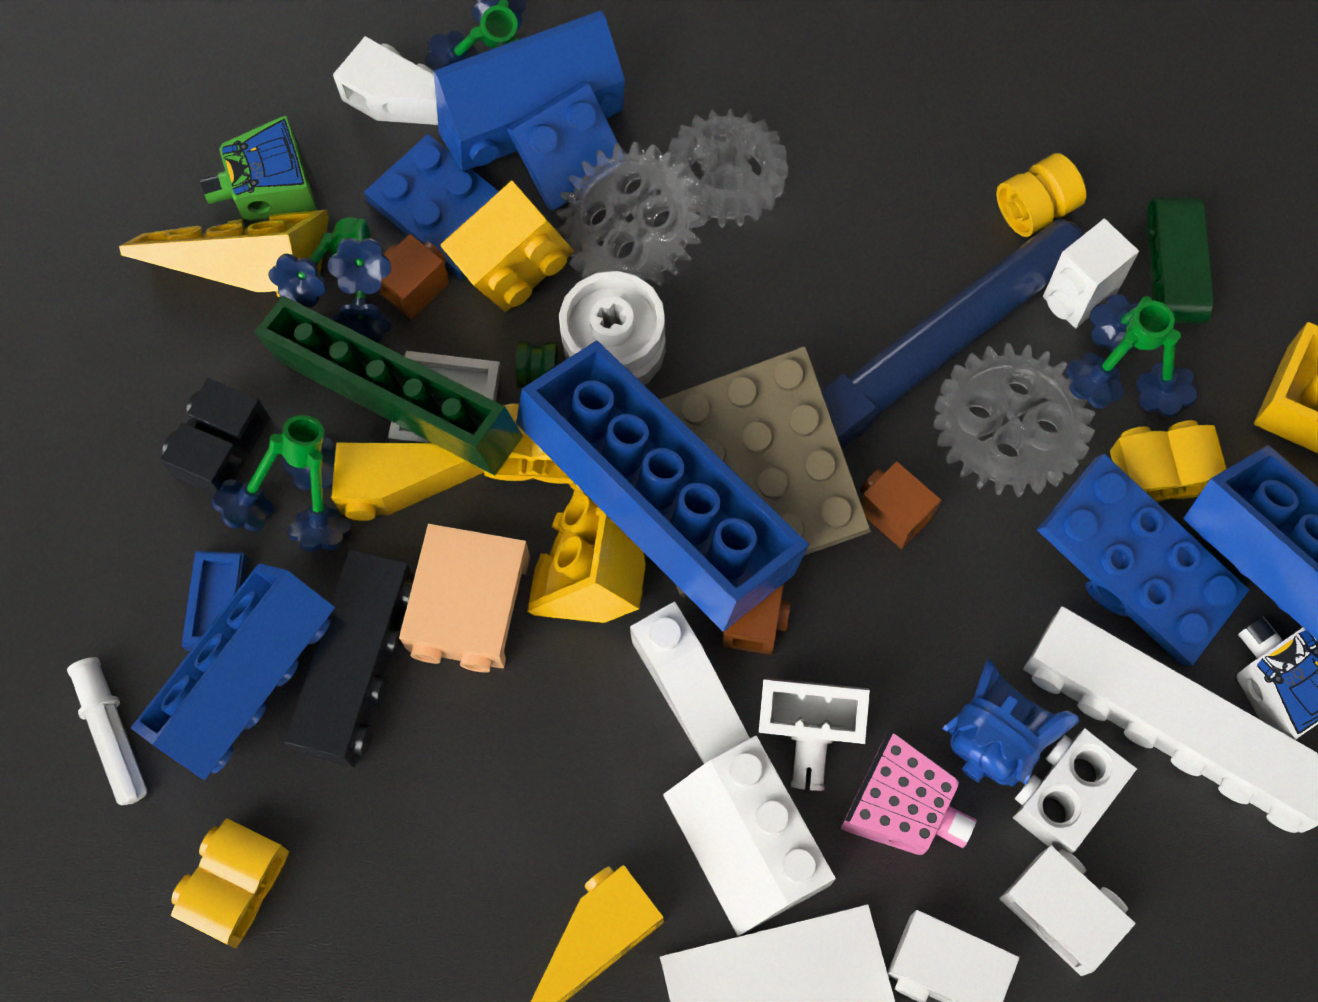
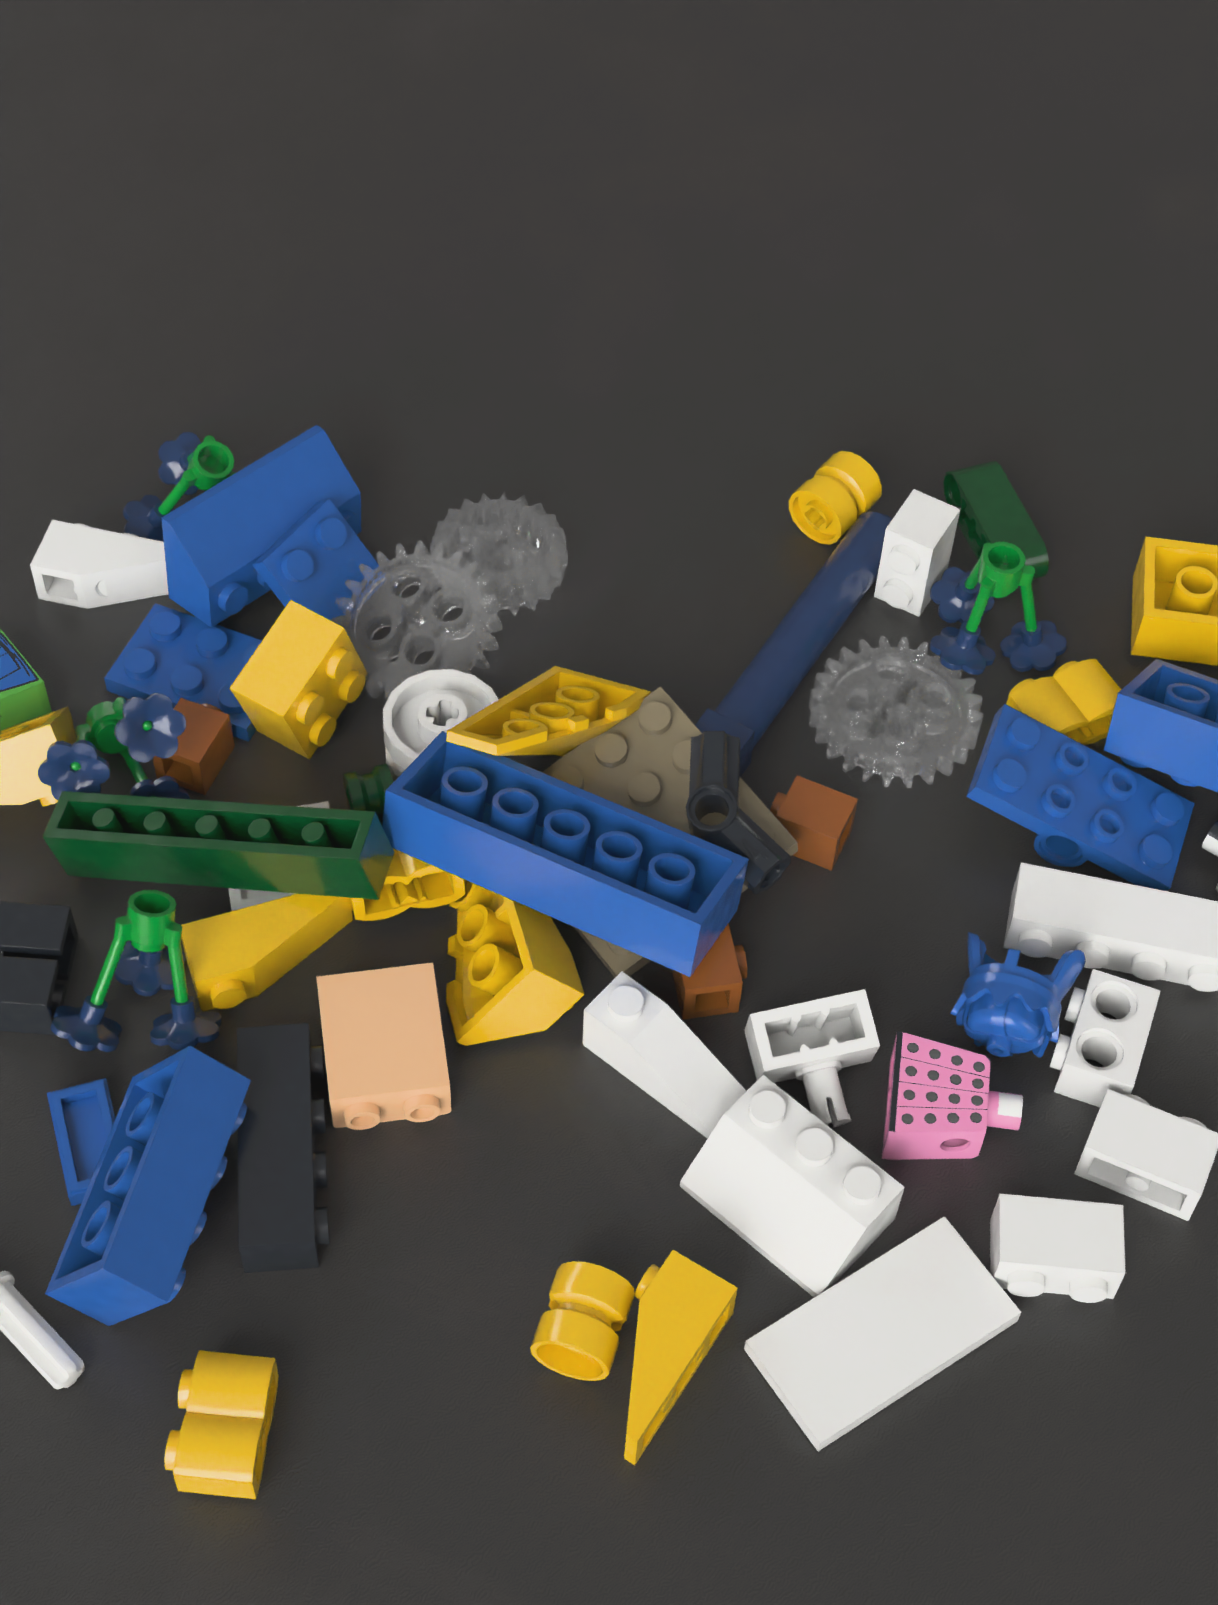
camera: 25 degrees left, 15 degrees down
(534, 894) = (580, 1328): none -> yellow wheel
(693, 346) = (548, 715): none -> yellow wedge
(812, 460) = (716, 789): none -> black piece

